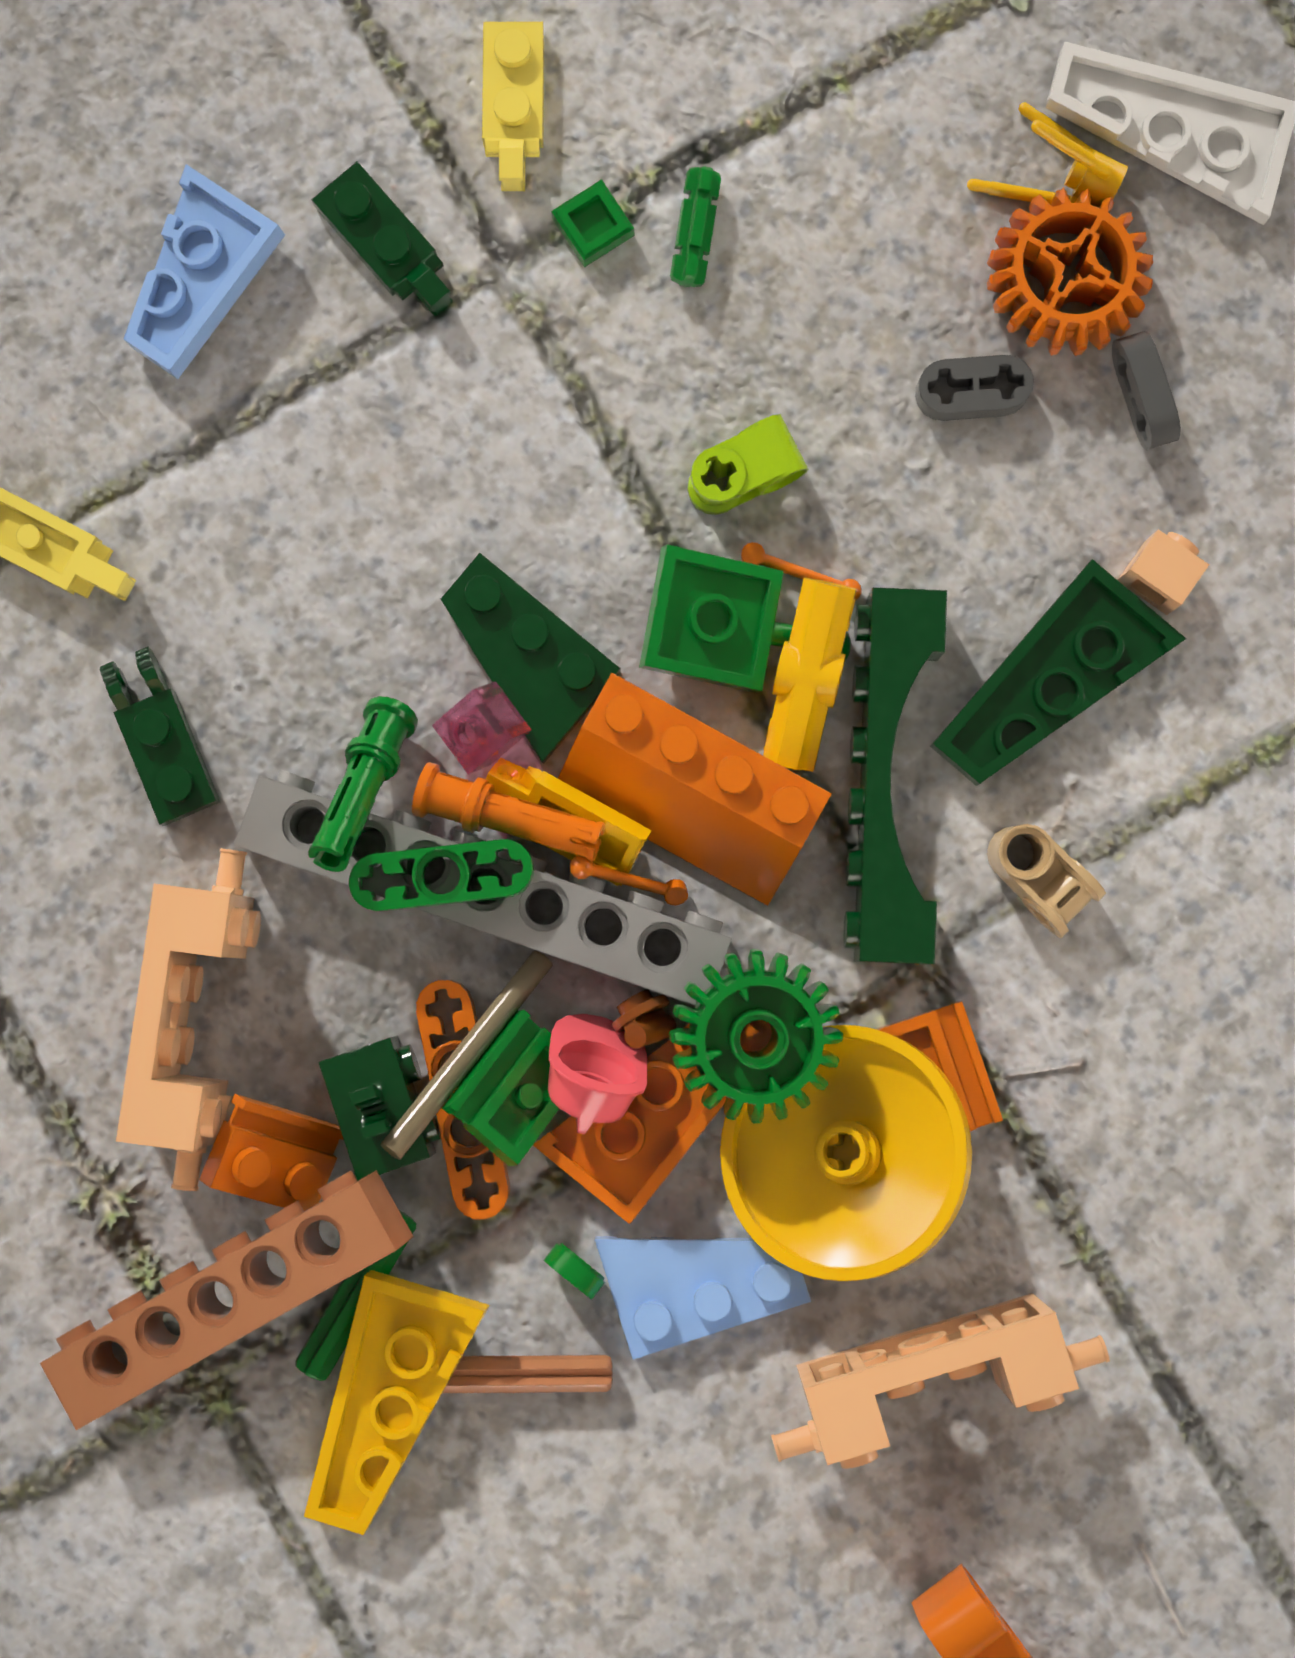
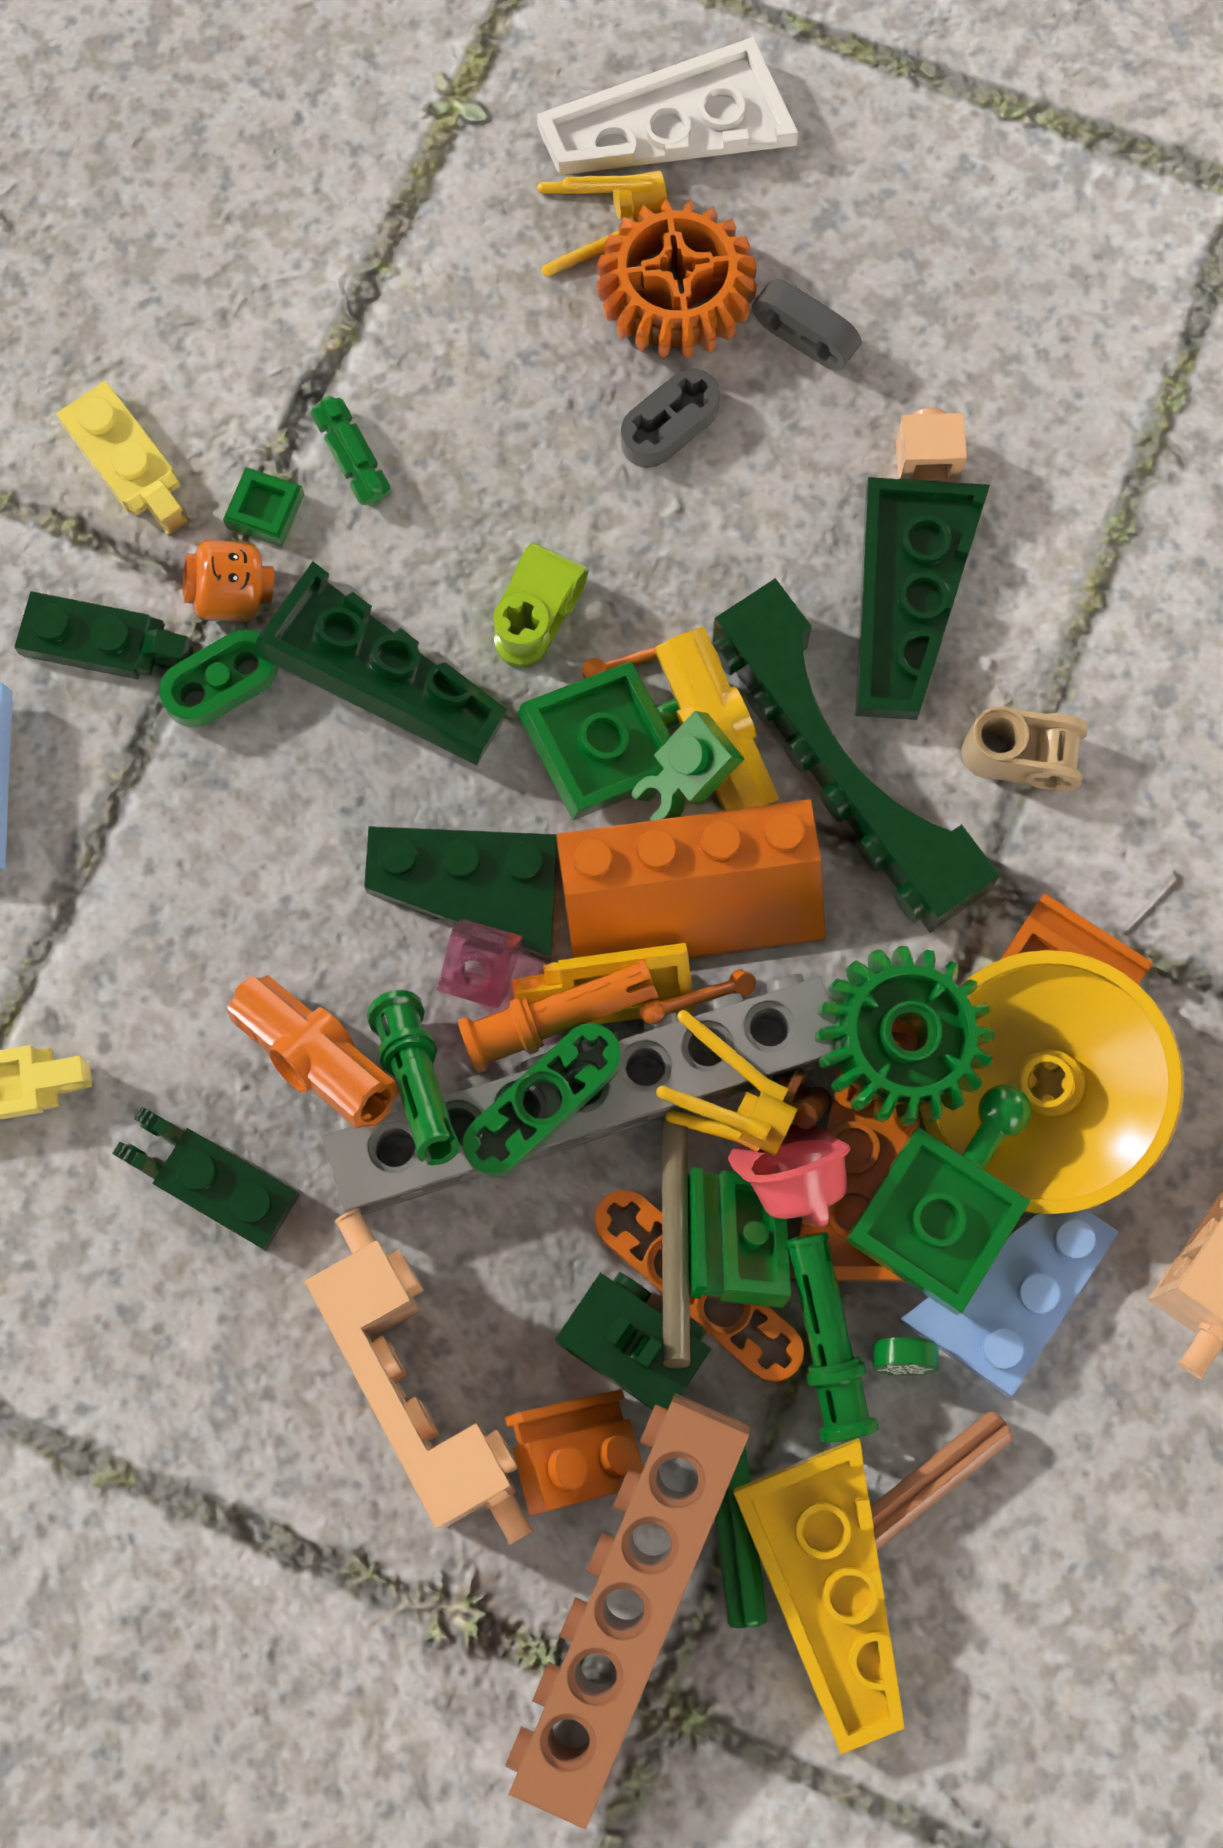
camera: 40 degrees left, 10 degrees down
(300, 703) = (312, 1051): none -> orange piece
(454, 339) = (217, 675): none -> green plate
(514, 267) = (226, 581): none -> orange head
(515, 1240) = (834, 1367): none -> green pin
(572, 410) = (359, 659): none -> dark green wing
(595, 1014) = (759, 1120): none -> yellow plant
(680, 1190) = (939, 1212): none -> green plate
(761, 698) = (694, 766): none -> plate

